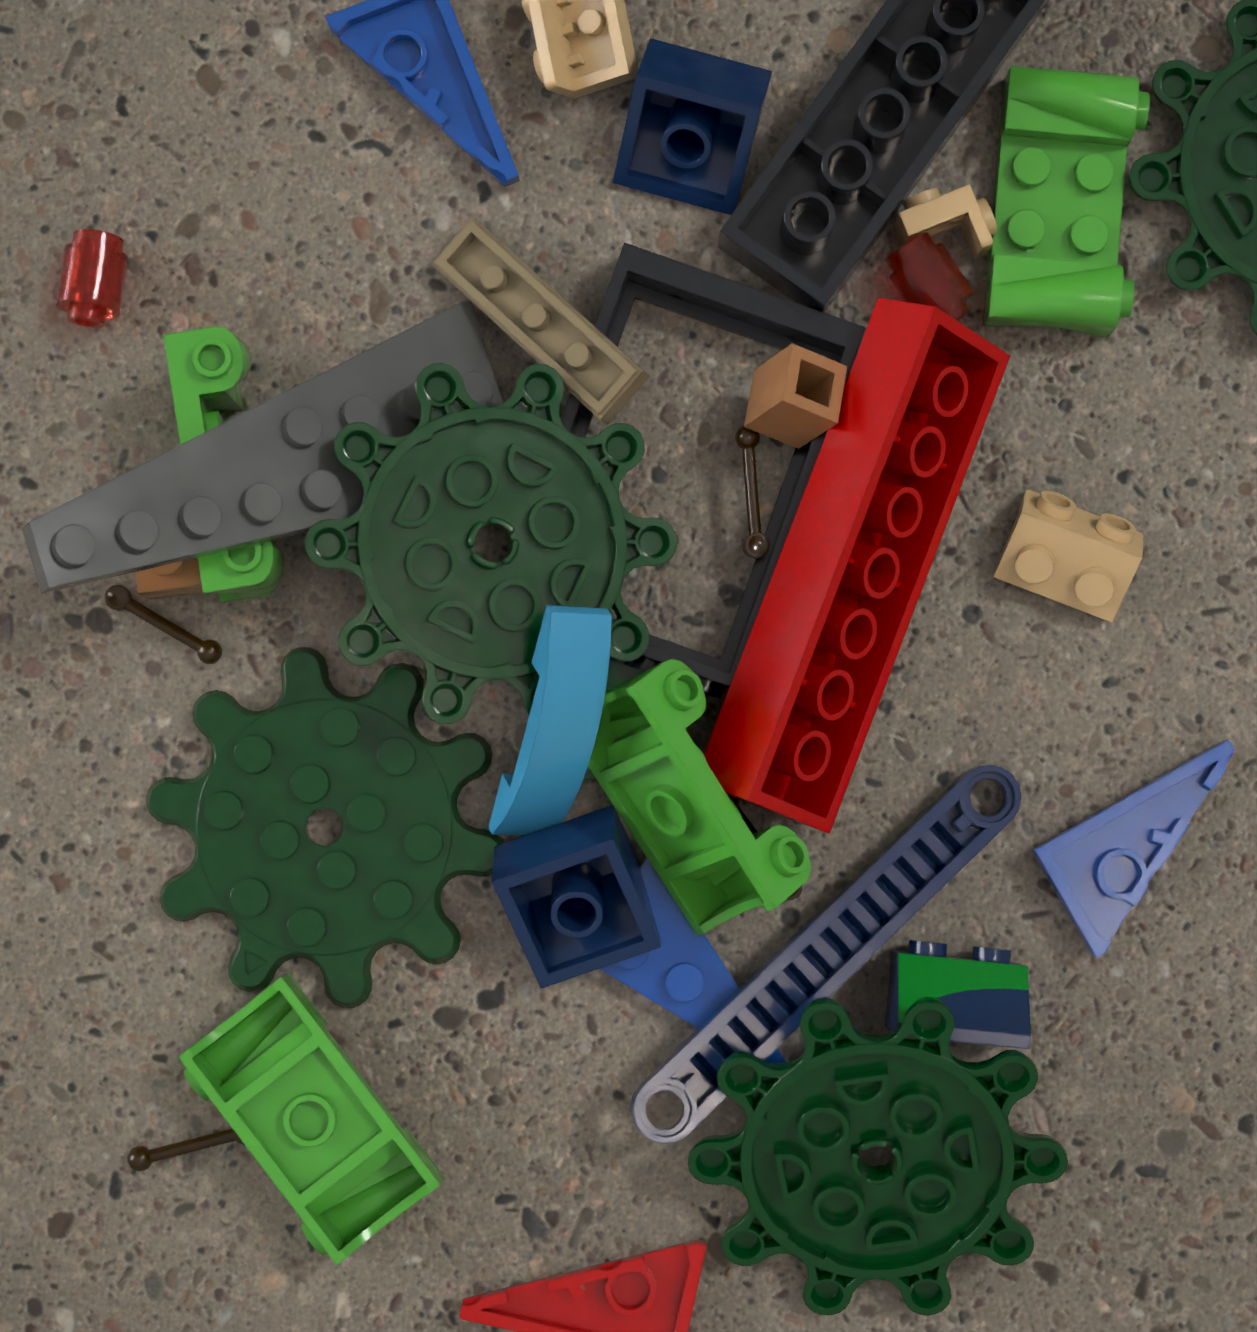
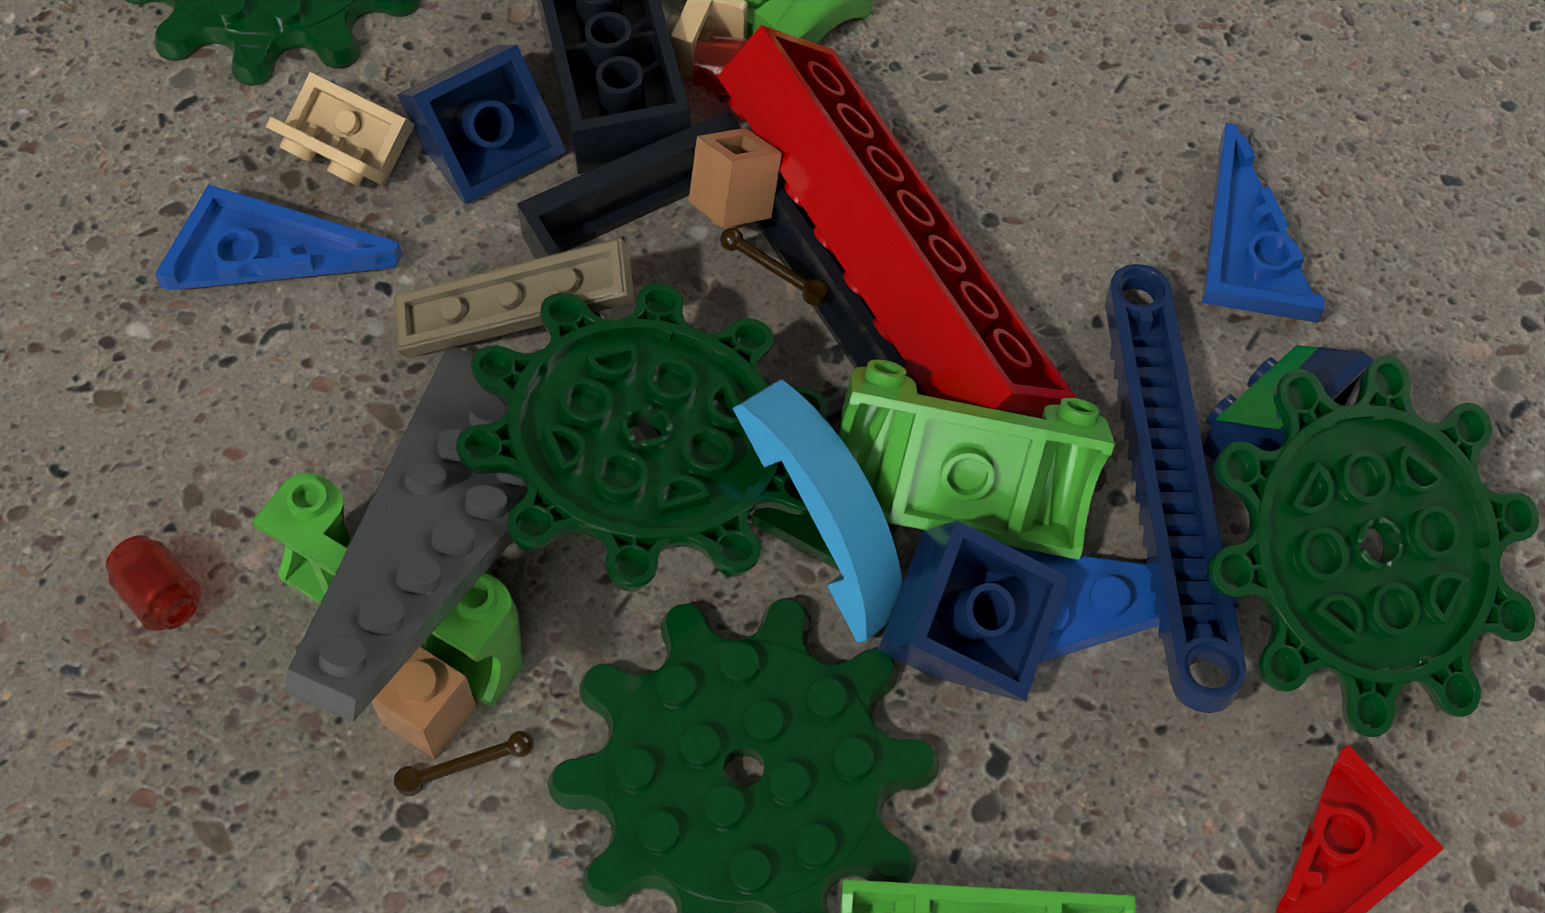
camera: 50 degrees left, 25 degrees down
(1071, 554) = (1008, 126): tan bracket -> none

